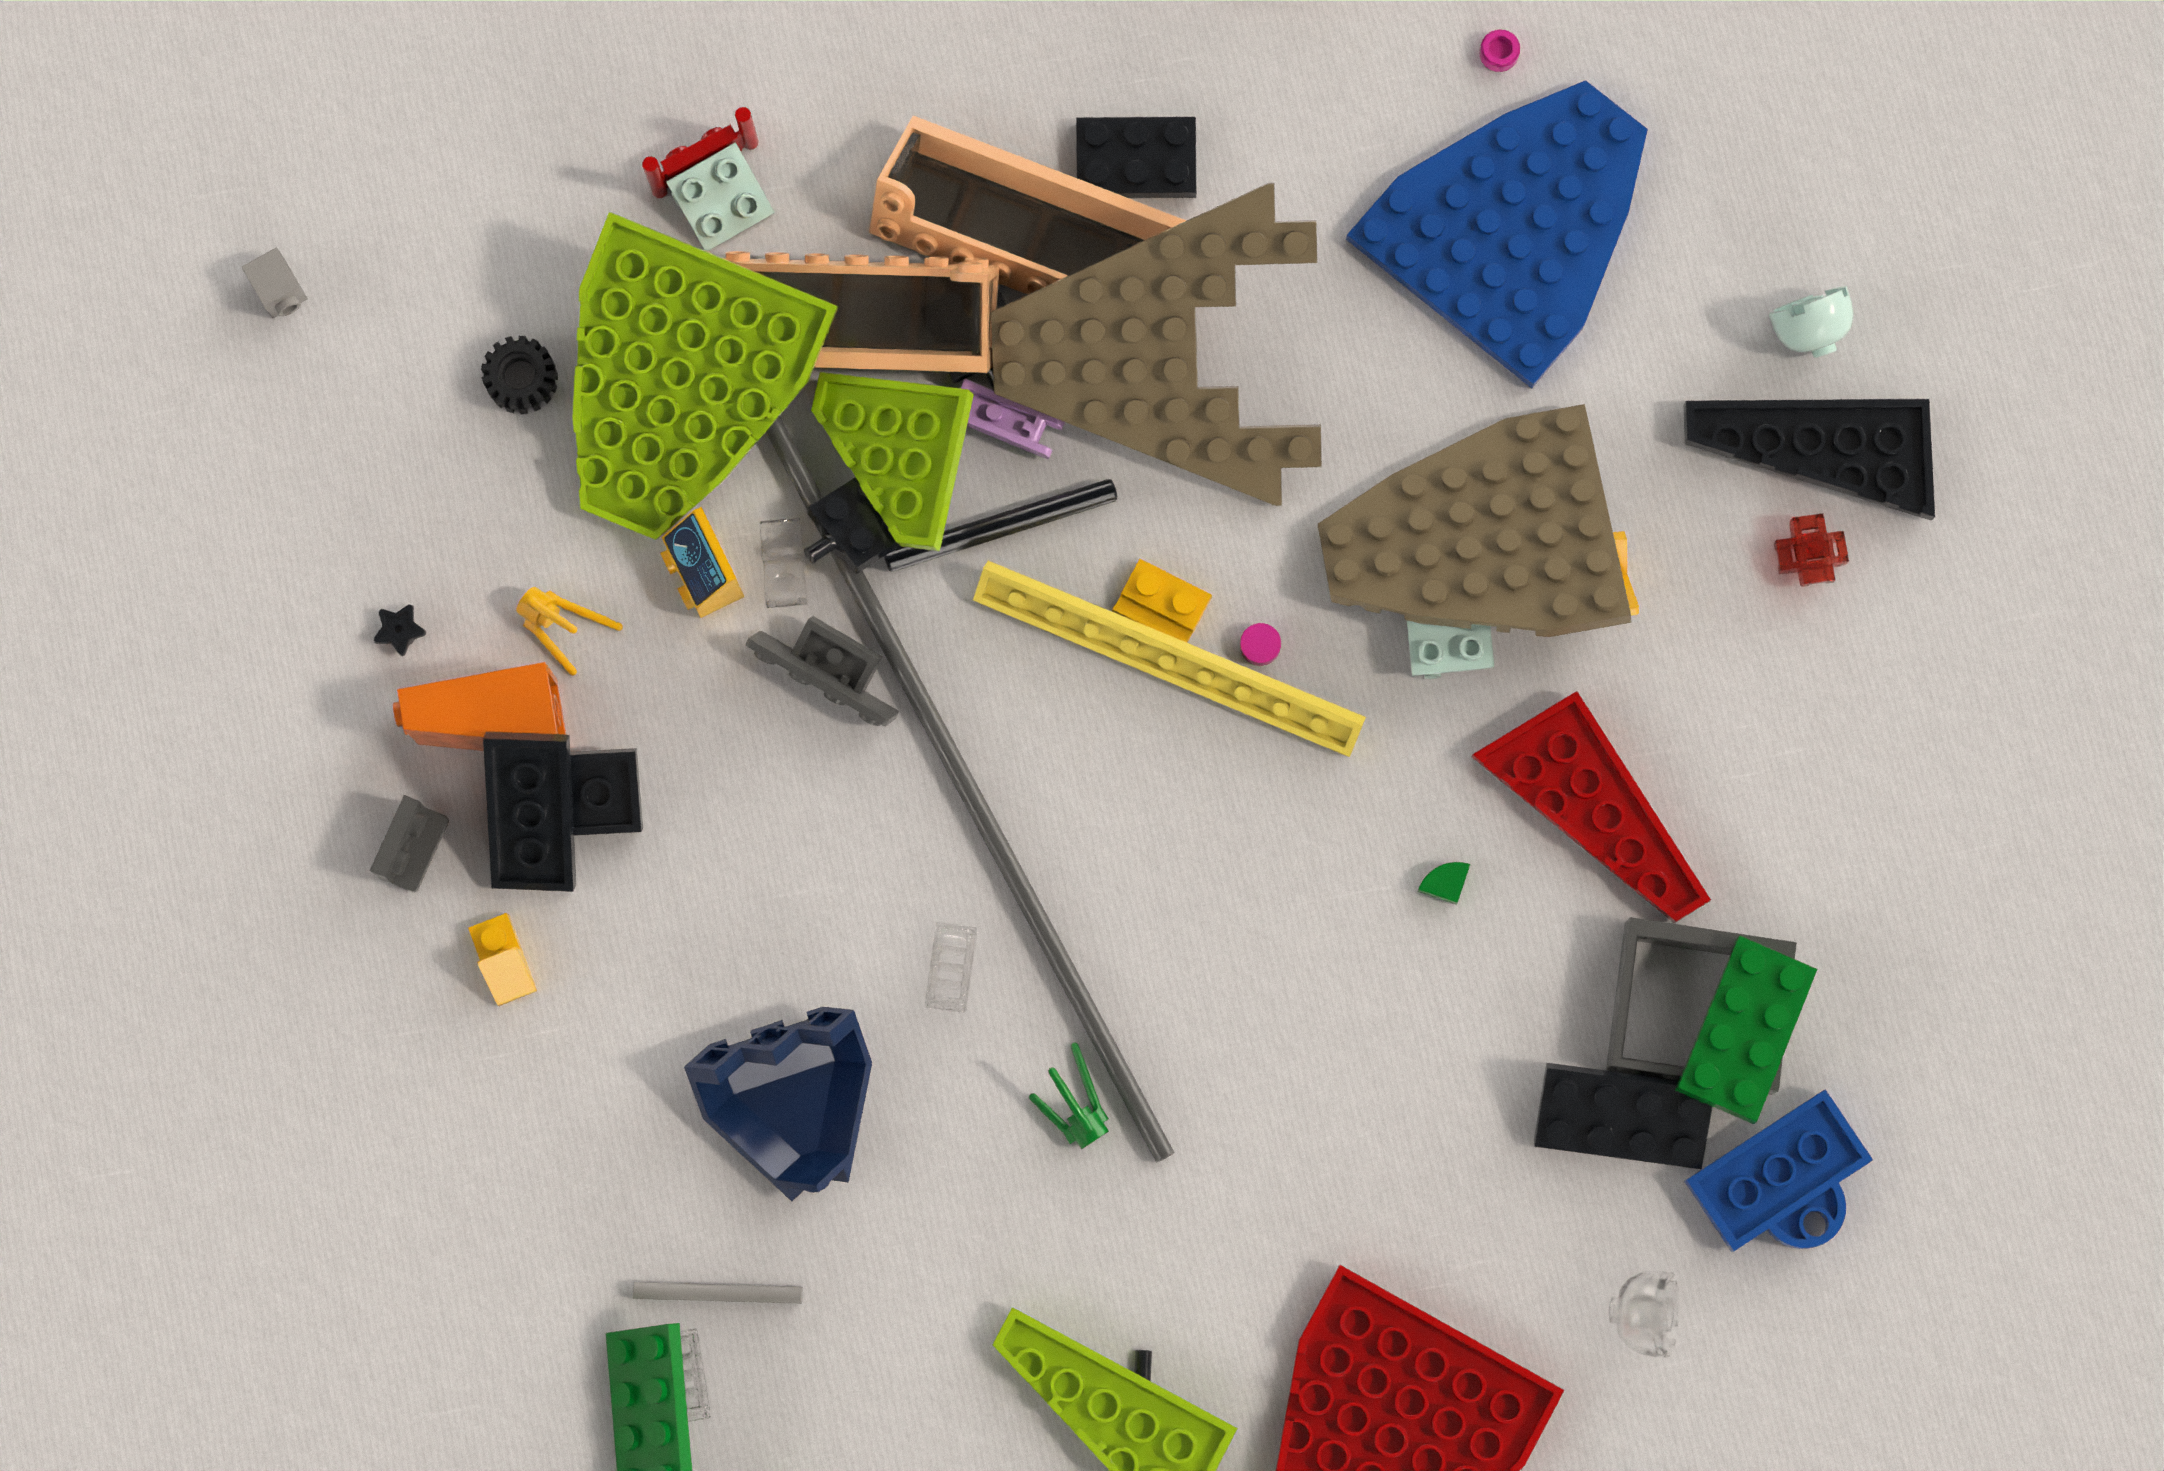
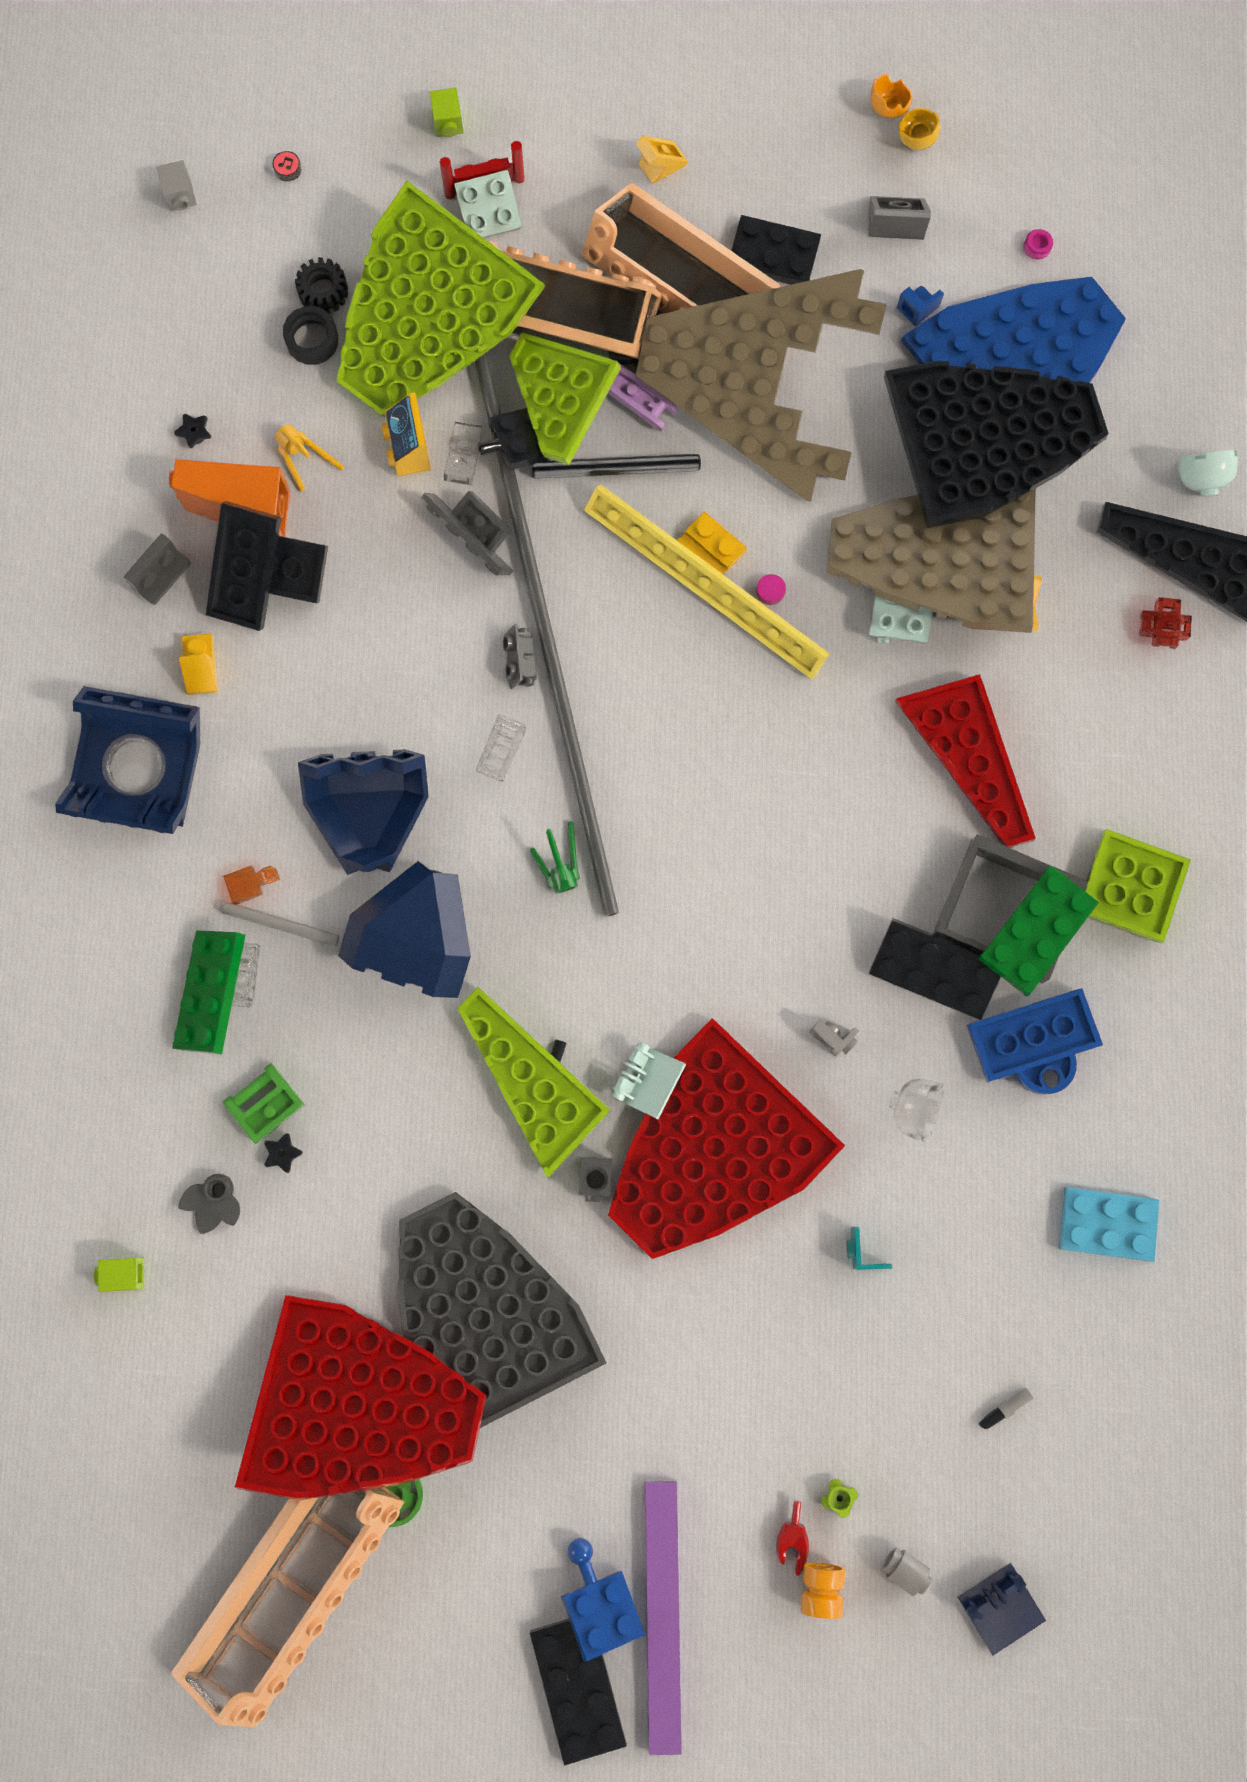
camera: 10 degrees right, 0 degrees up
(420, 211) = (287, 166): none -> tile
(452, 1124) = (132, 760): none -> dark blue panel
(504, 427) = (304, 316): none -> black tyre
(624, 76) = (446, 112): none -> lime brick
(655, 1249) = (247, 883): none -> clear orange plate
(904, 1259) = (412, 933): none -> dark blue panel
(942, 64) = (659, 157): none -> yellow slope
(944, 851) = (518, 669): none -> dark grey hinge
(1277, 1374) = (648, 1080): none -> light aqua hinge
(1295, 61) = (898, 217): none -> dark grey slope
(1356, 181) = (918, 304): none -> blue panel
(1445, 881) = (854, 779): green tile -> none
(1500, 350) = (988, 433): none -> black wing
(1503, 1247) = (828, 1036): none -> light grey bracket
(1861, 927) = (1135, 885): none -> lime plate
(1943, 1400) = (1109, 1224): none -> medium azure plate

